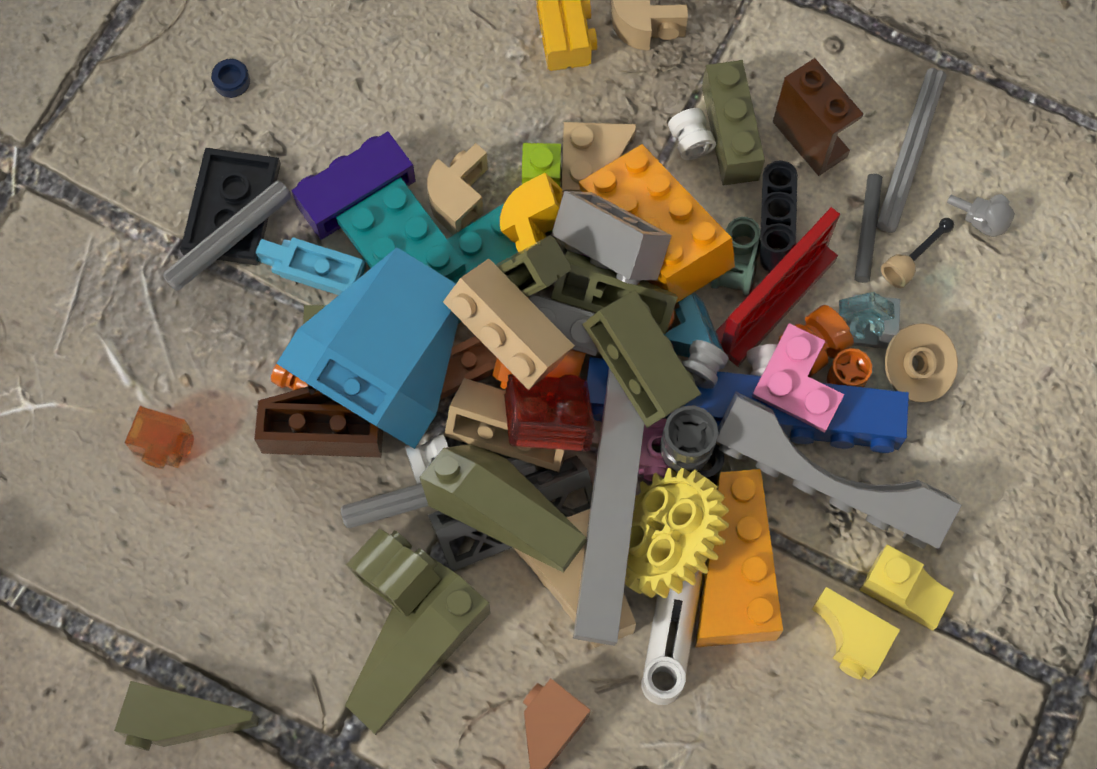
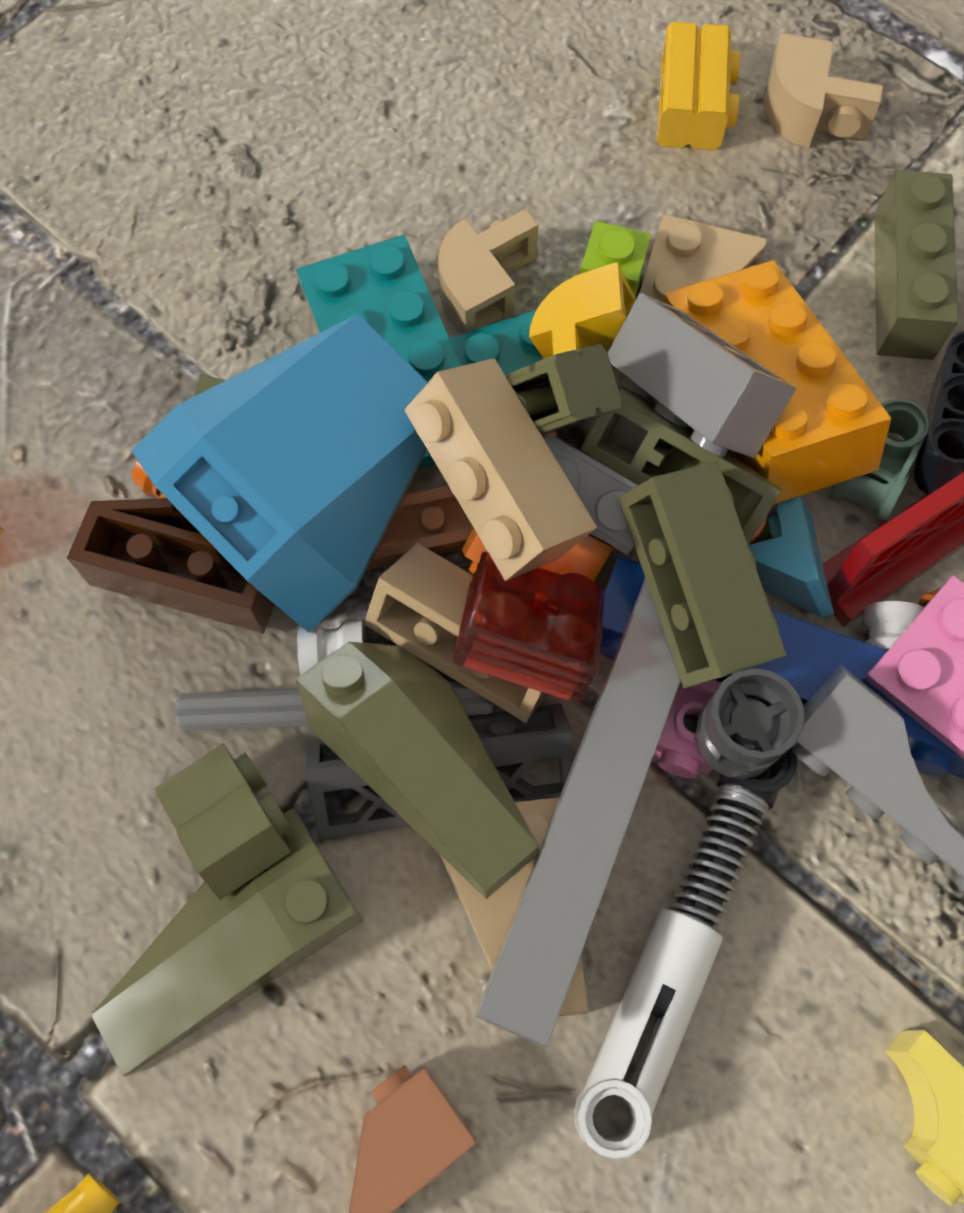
camera: 15 degrees right, 0 degrees up
(222, 189) = (158, 229): black tile -> none
(227, 235) = (133, 261): light grey axle -> none
(230, 78) = (212, 62): dark blue tile -> none
(311, 264) = (234, 323): medium azure hinge -> none
(351, 181) = (333, 224): dark purple brick -> none
(673, 532) = (690, 874): light yellow gear -> none
(692, 135) = (849, 269): white wheel -> none
(704, 363) = (801, 606): light grey wheel -> none
(741, 585) = (783, 953): light orange wedge -> none

